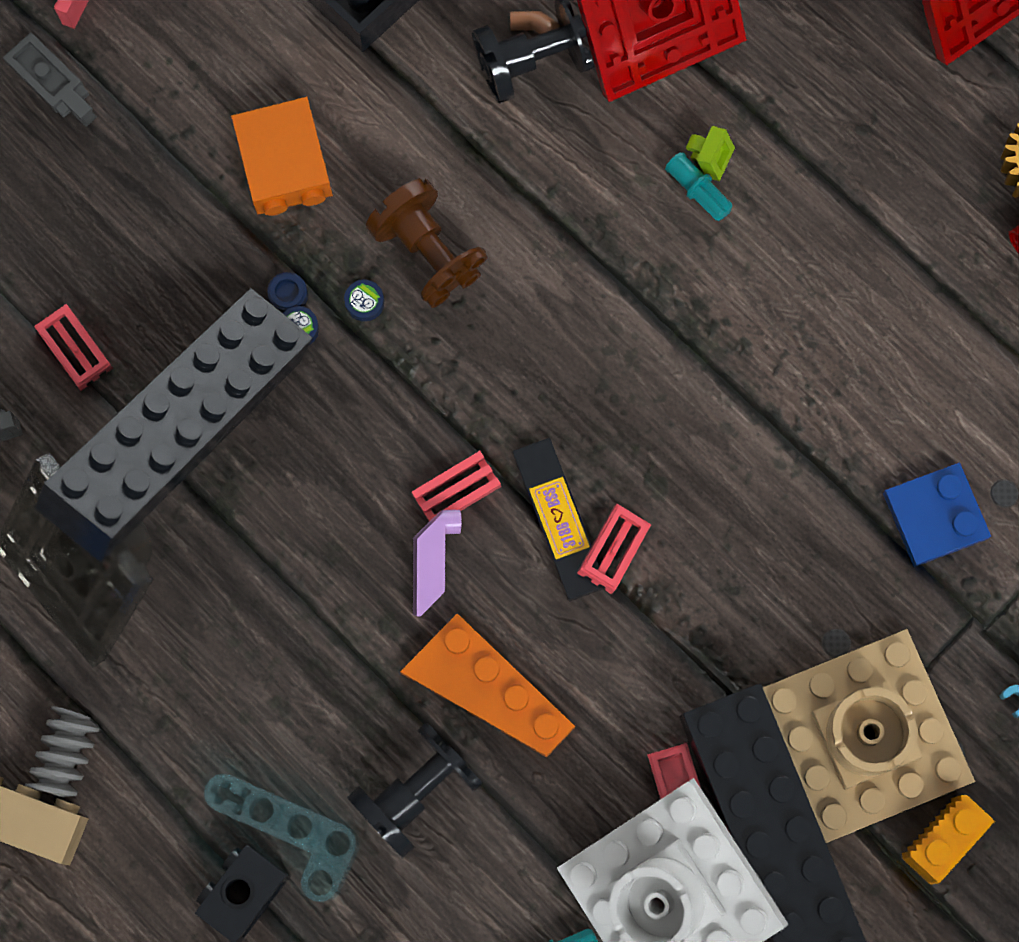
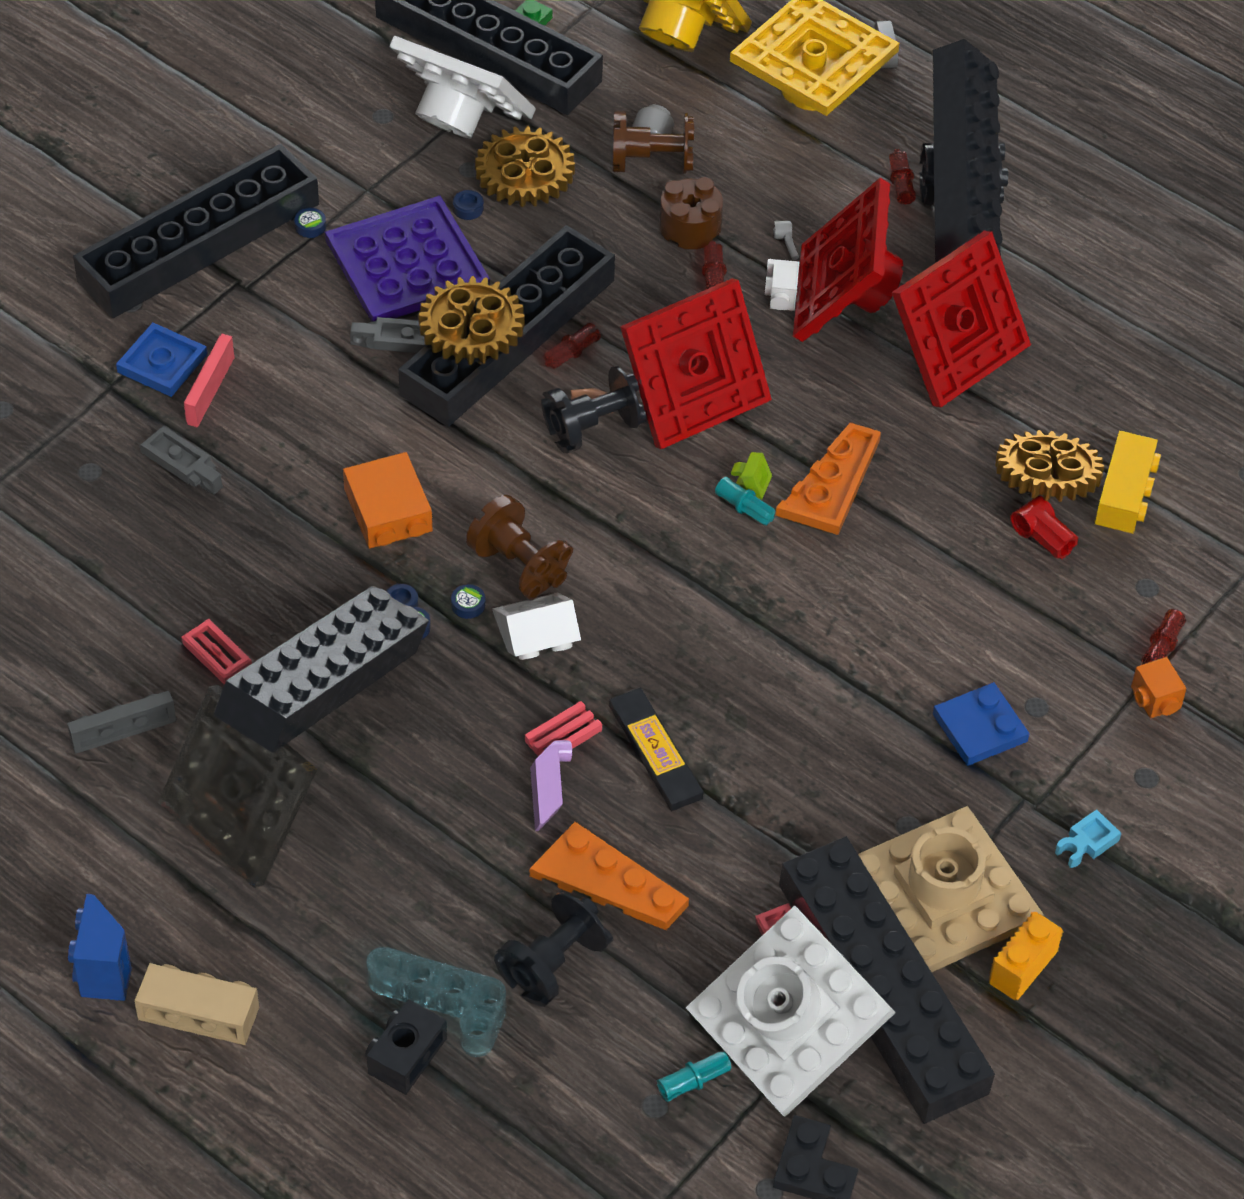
camera: 10 degrees left, 25 degrees down
(63, 753) = (235, 944): light grey piece -> none
(439, 342) = (538, 625): none -> white slope
(598, 575) = (697, 780): coral tile -> none
(799, 175) = (833, 482): none -> orange wing

